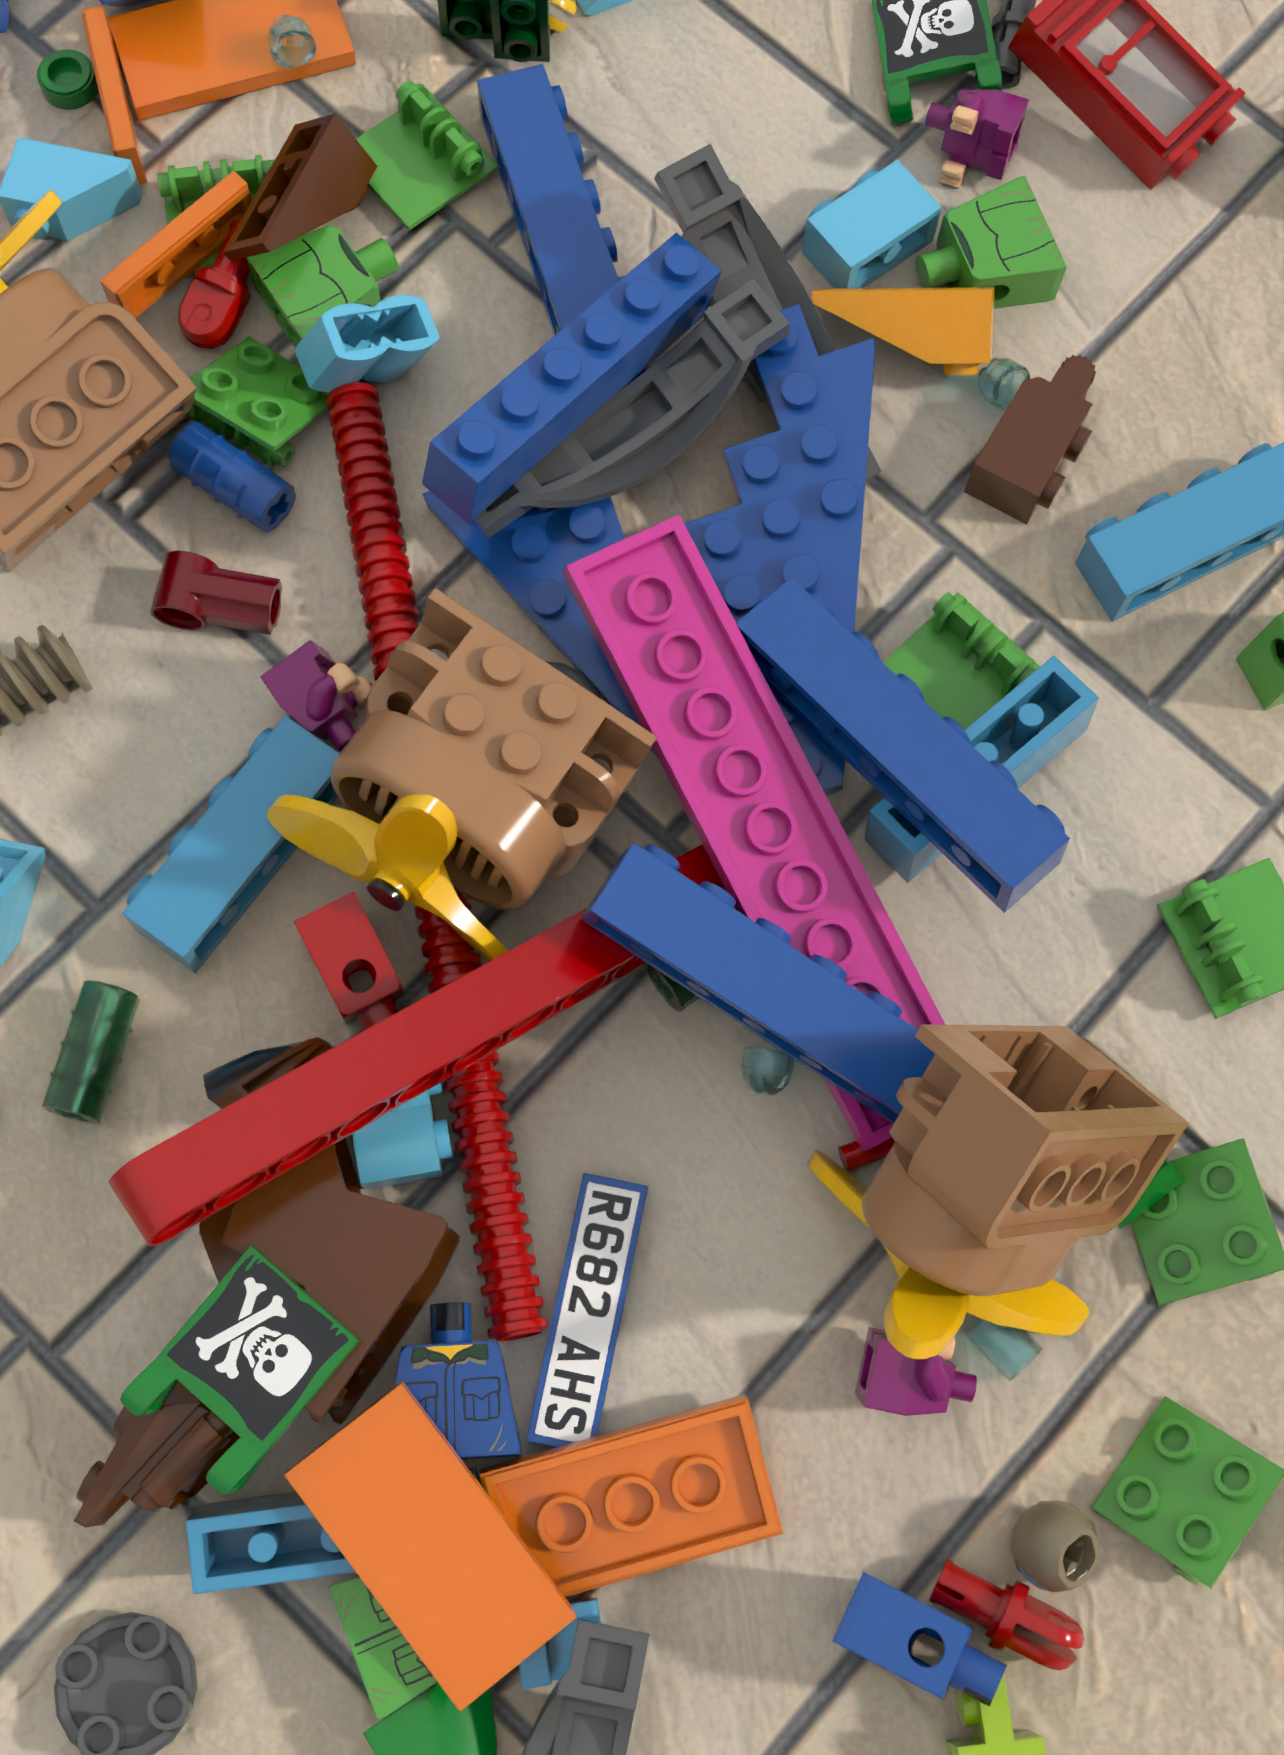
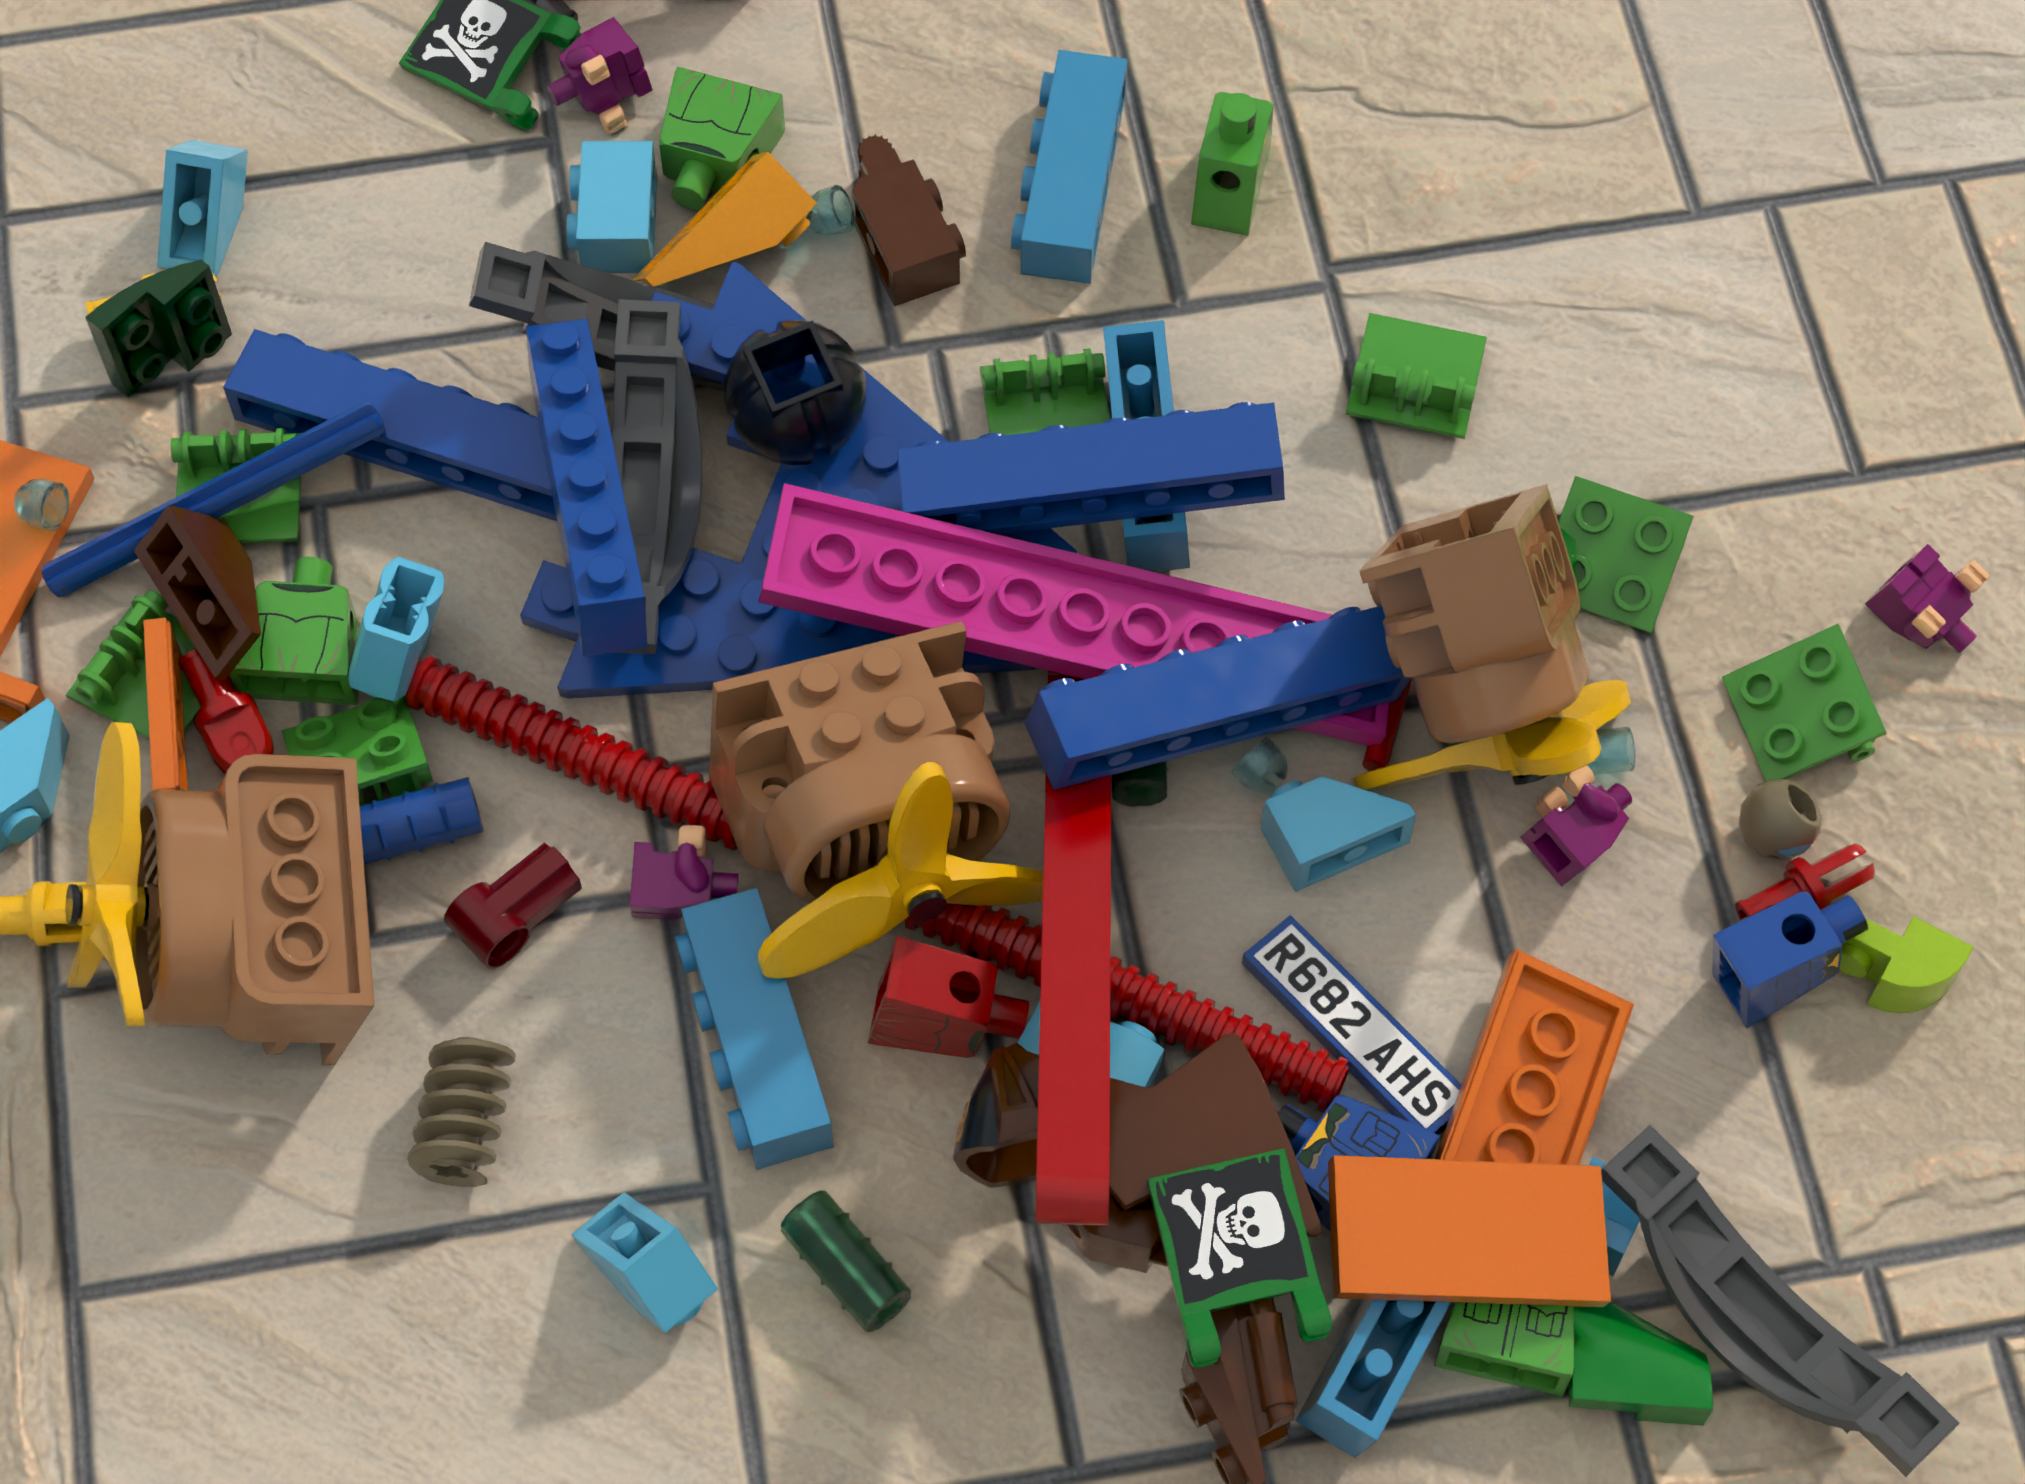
camera: 50 degrees left, 10 degrees down
(396, 148) = (219, 495): none -> blue axle
(749, 1162) = (1331, 828): none -> medium azure slope
(766, 498) = (808, 422): none -> black piece

